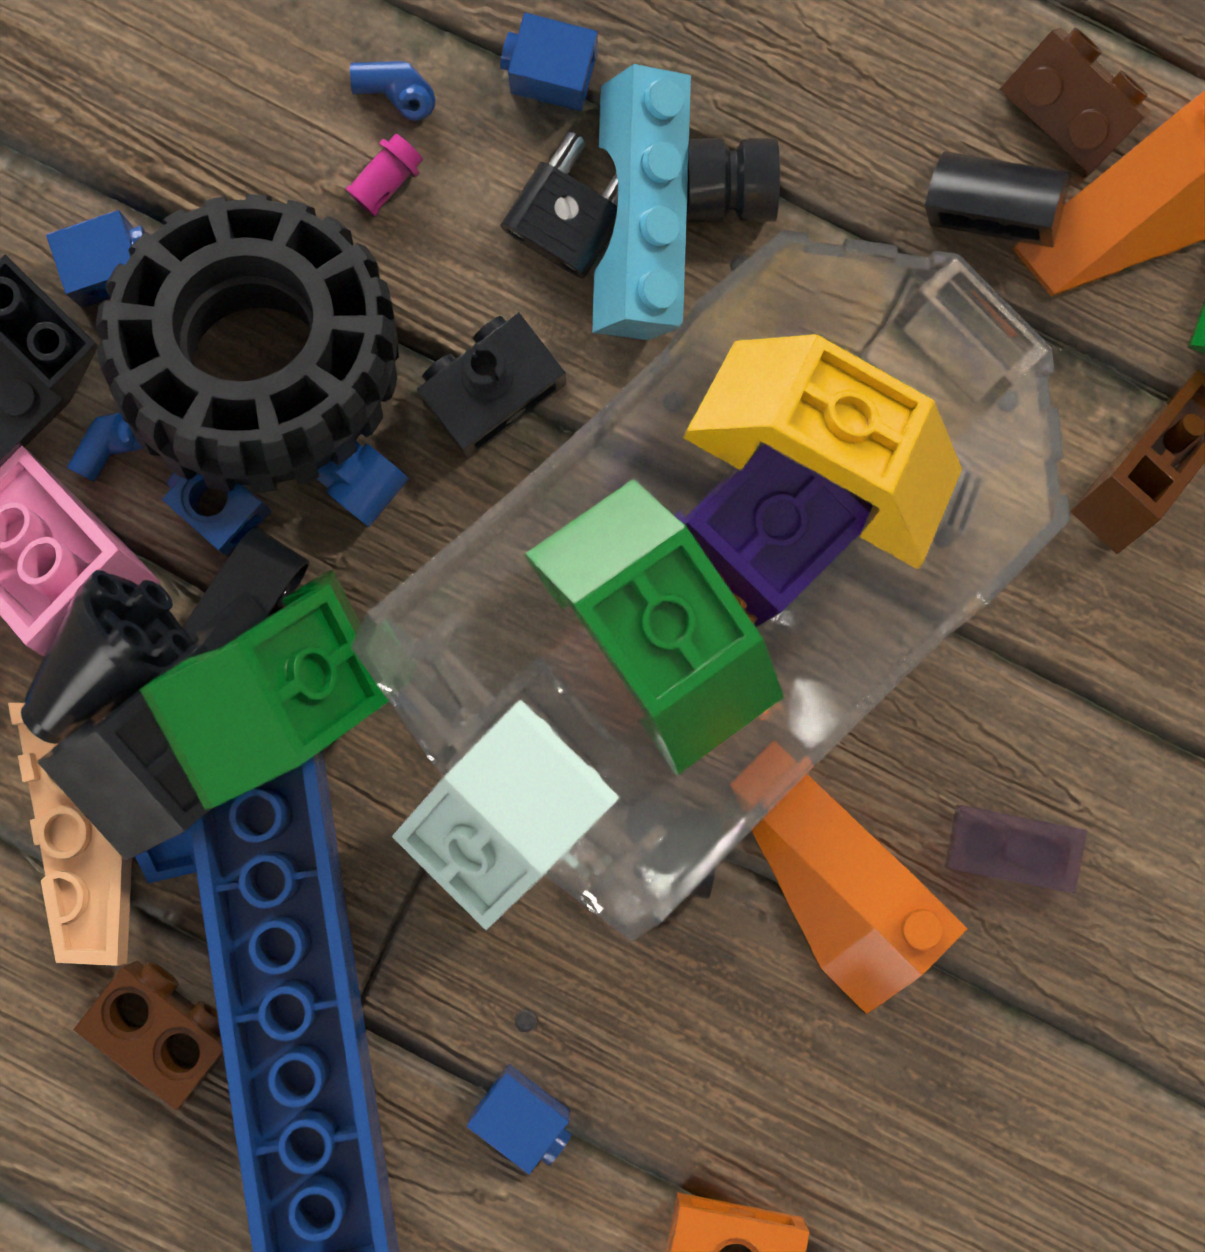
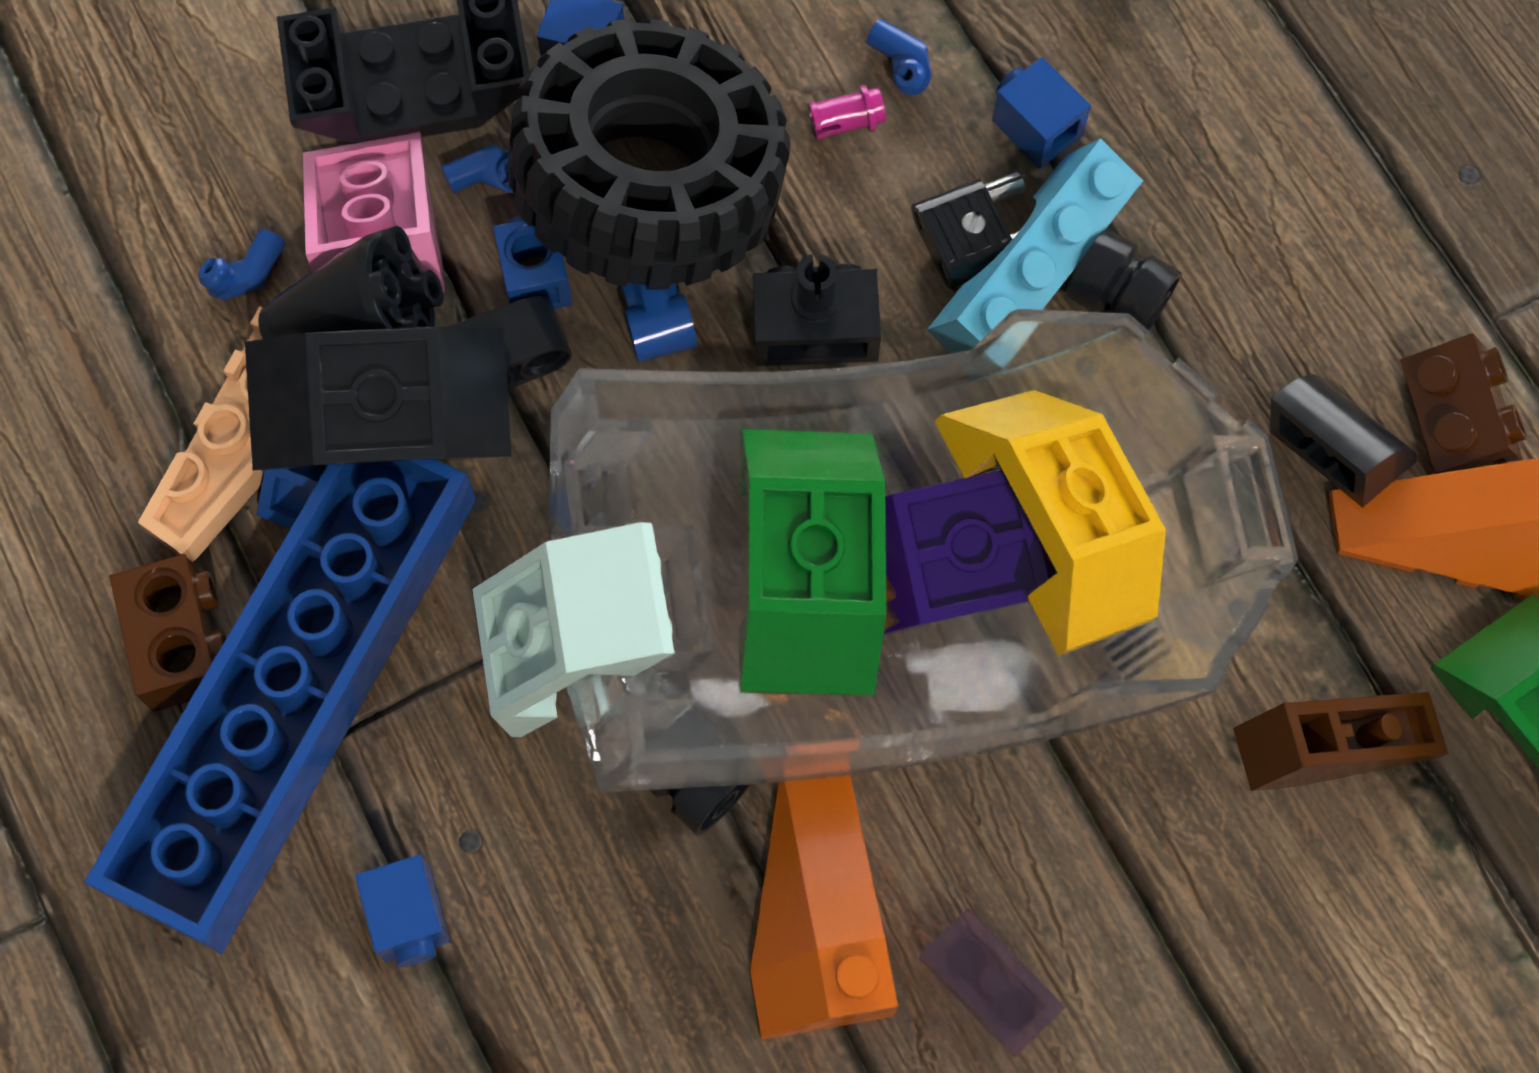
camera: 40 degrees right, 15 degrees down
(267, 695) = (455, 399): green slope -> none

